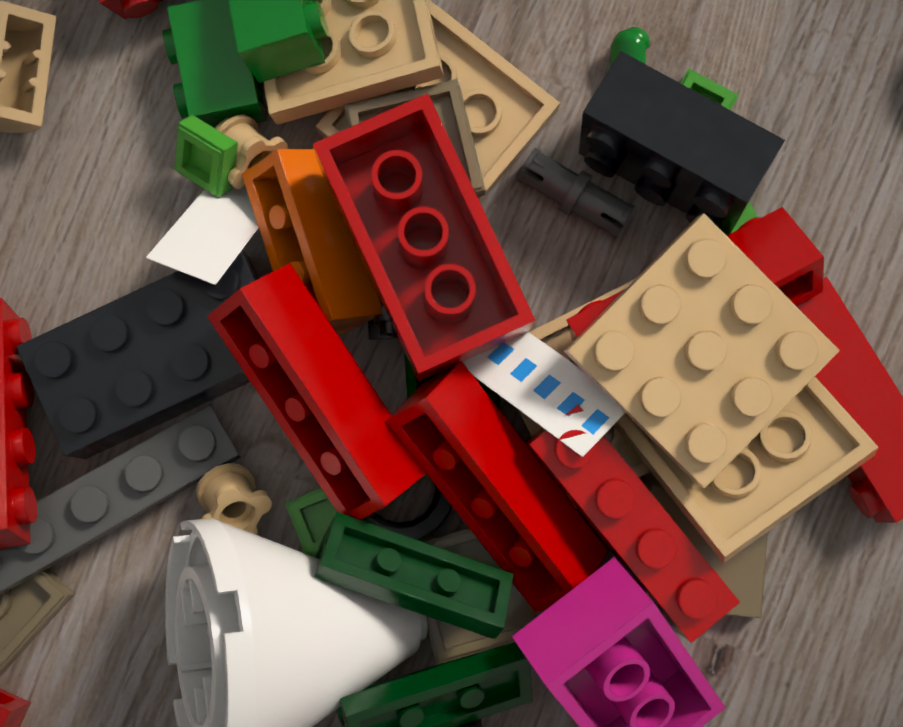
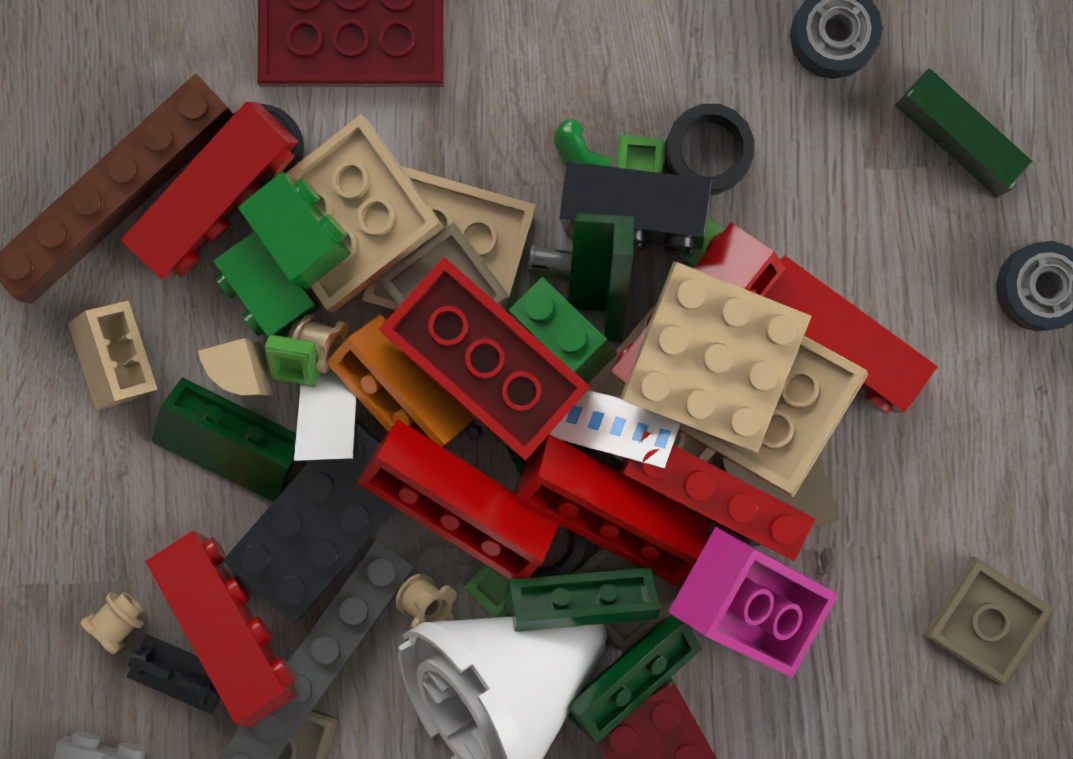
camera: 30 degrees left, 5 degrees up
(90, 214) = (225, 439): none -> dark green panel
(138, 133) = (238, 368): none -> tan brick
(534, 252) = (563, 330): none -> green brick
(607, 194) = (602, 268): none -> dark green panel
(817, 98) = (722, 116): none -> black tyre

